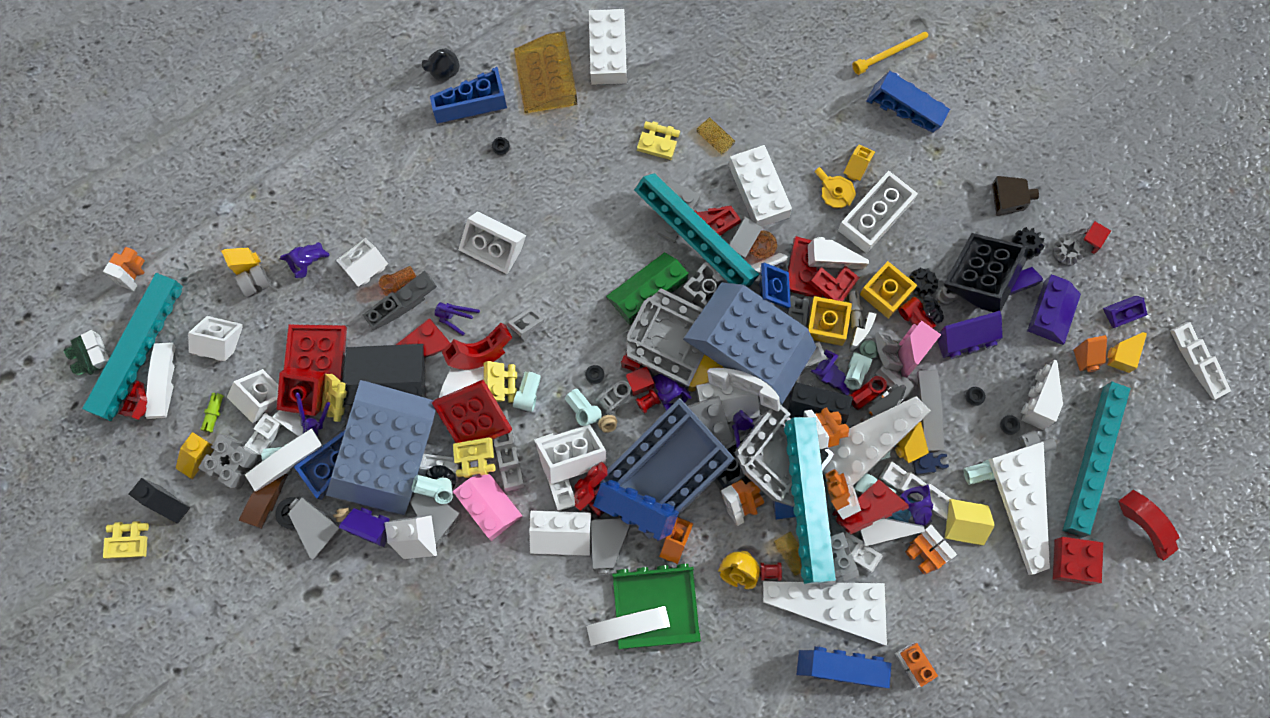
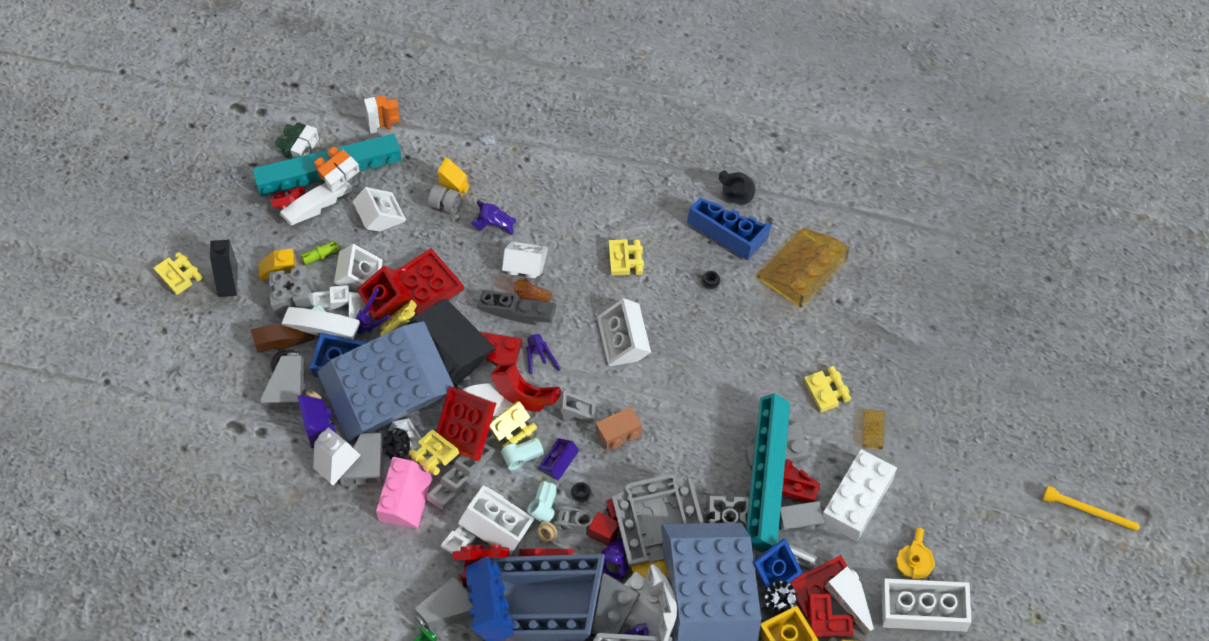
camera: 50 degrees right, 15 degrees down
(150, 342) = (337, 169): none -> hips
(423, 193) = (619, 257): none -> light yellow plate
(439, 489) = (386, 446): light aqua piece -> none
(552, 369) = (558, 458): none -> dark purple slope
(560, 533) = (424, 562): white slope -> none
(567, 307) = (619, 428): none -> nougat brick
(607, 46) = (870, 290): white brick -> none
(626, 437) = (544, 552): none -> red wing
(648, 401) = (591, 547): red bush -> none
(661, 273) = (707, 476): green slope -> none
(771, 245) = (818, 532): clear orange gear -> none
(792, 306) = (772, 597): none -> black gear
(858, 162) = (959, 557): yellow slope -> none
(908, 102) = (1055, 556): blue wedge -> none

